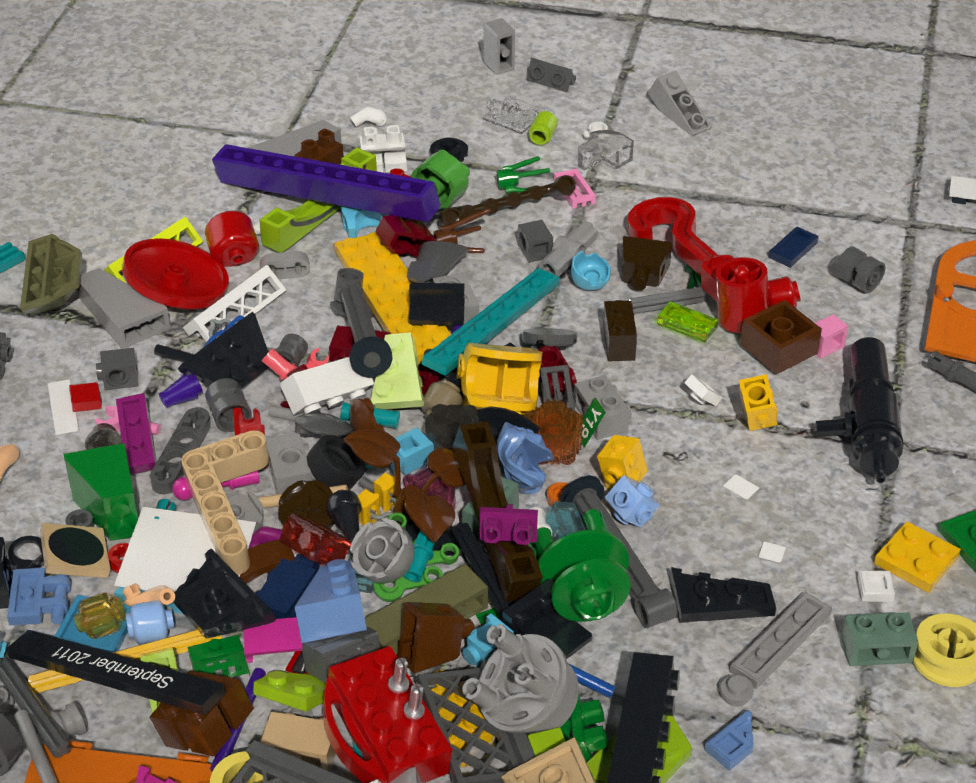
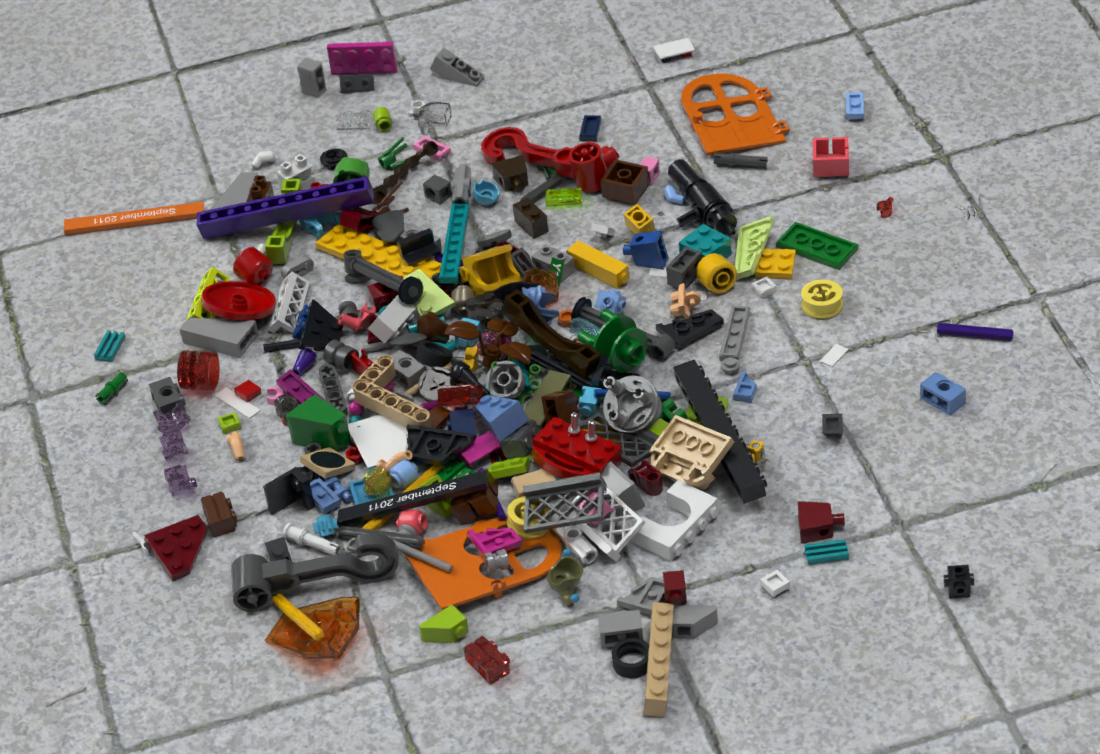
camera: 25 degrees left, 0 degrees up
(24, 429) = (229, 423): none -> lime tile
(43, 340) = (198, 370): none -> clear red wheel
(49, 274) = (163, 332): olive wedge -> none
(96, 704) = (414, 518): none -> coral head
(118, 369) = (255, 366): dark grey brick -> none
(166, 123) = (132, 218): none -> orange tile
(508, 525) = (566, 336): magenta hips -> none
(575, 47) = (362, 58): none -> dark pink piece
(622, 457) = (589, 283): yellow head -> none
(660, 438) = (599, 264): none -> yellow brick
(739, 552) = (683, 302): none -> light nougat hips
(741, 449) = (647, 250): none -> blue torso
(772, 500) = (683, 267): none -> dark grey brick
(813, 531) = (716, 273): none -> yellow head
(826, 484) = (707, 241): none -> teal brick
(835, 386) = (671, 195): none -> light blue arm
(861, 270) = (640, 124): dark grey wheel -> none
(879, 639) = (784, 309): sand green brick -> none
(894, 512) = (751, 245): none -> yellowish green wing
(912, 755) = (834, 355): none -> white sticker

